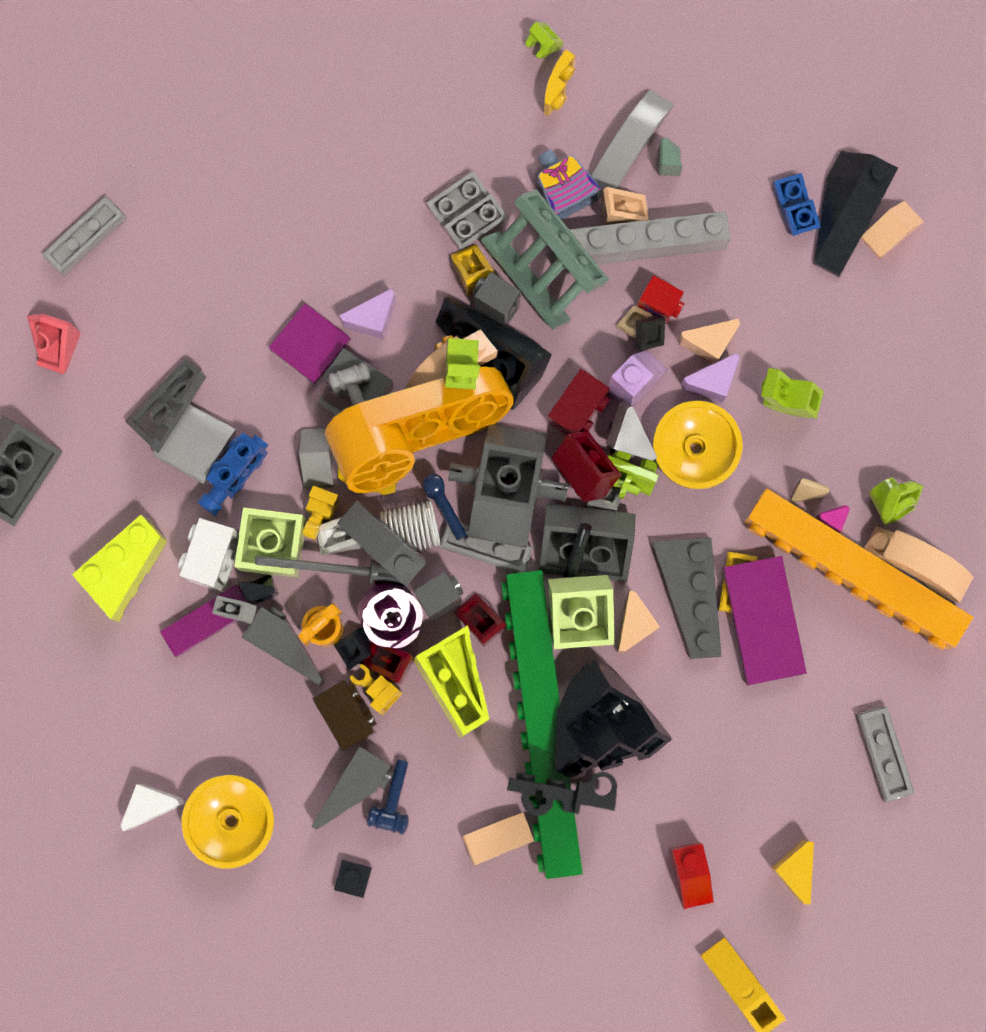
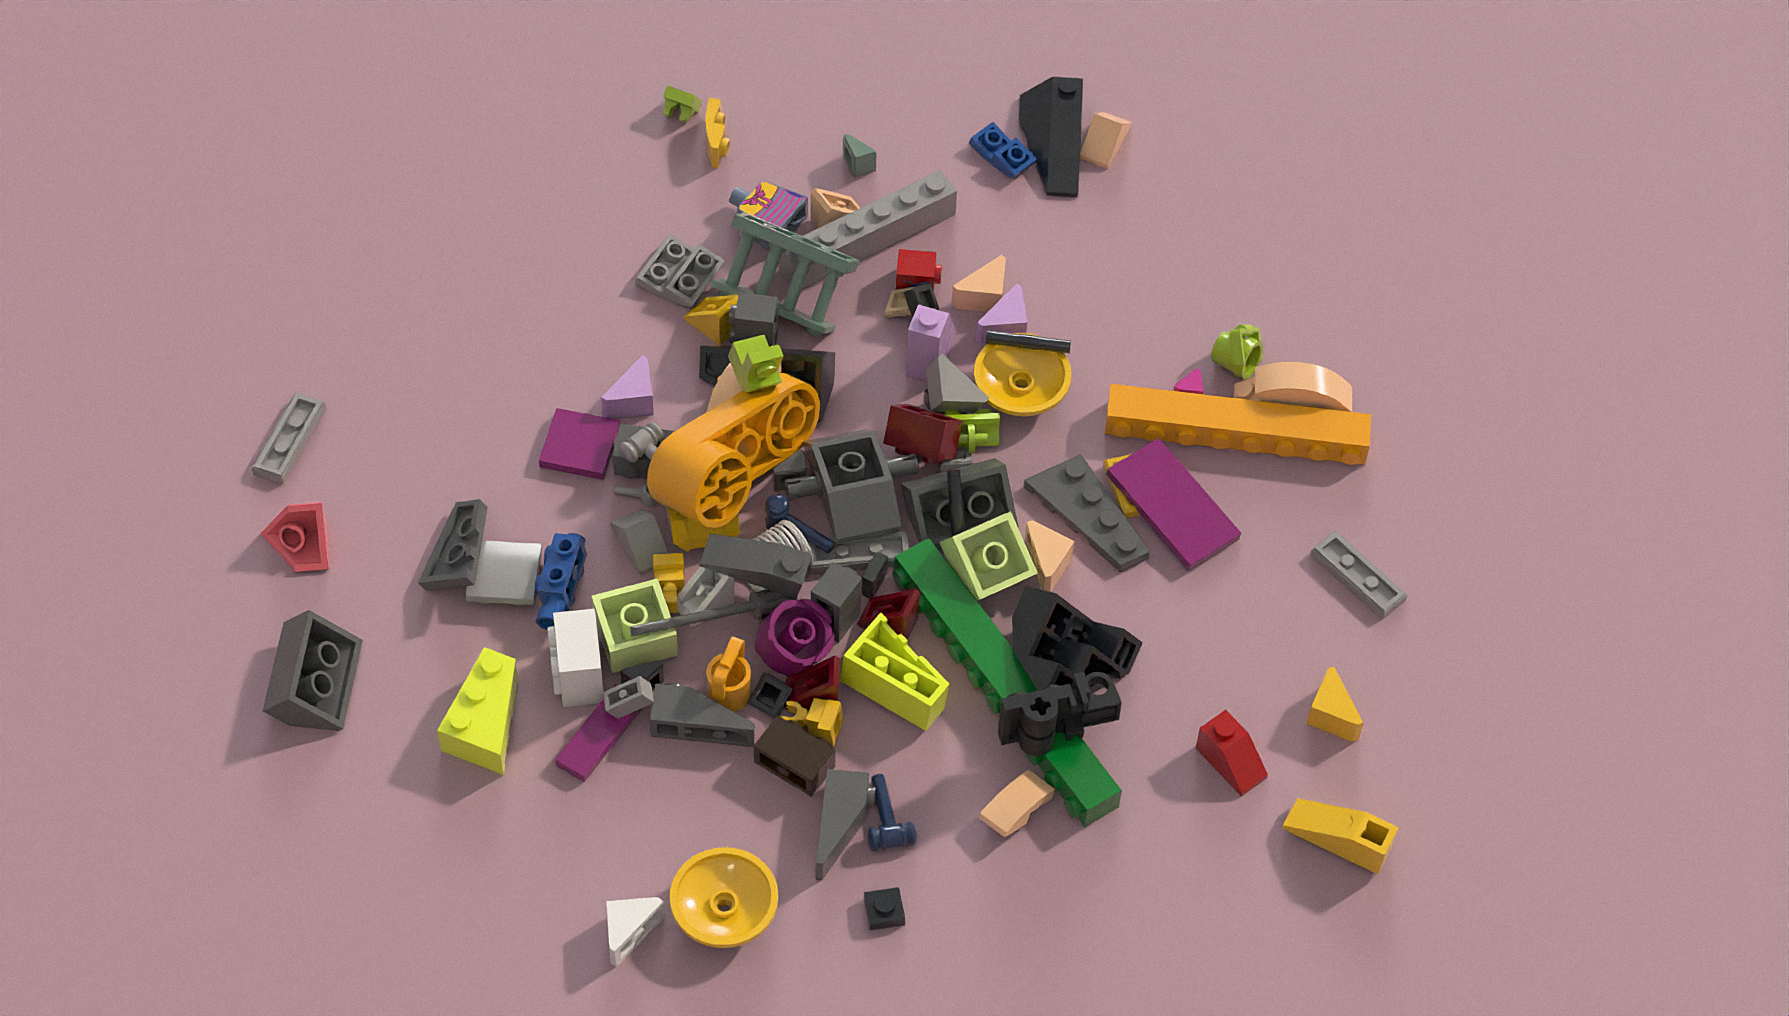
camera: 30 degrees left, 25 degrees down
(464, 451) = (789, 469): none -> dark grey slope
(485, 578) = (874, 574): none -> pearl dark grey tile
(579, 404) = (884, 386): dark red brick -> none
(631, 140) = (813, 152): light grey slope -> none
(716, 418) = (1028, 341): none -> black piece
(790, 395) = (1088, 305): lime brick -> none
(808, 490) = (1154, 374): tan slope -> none

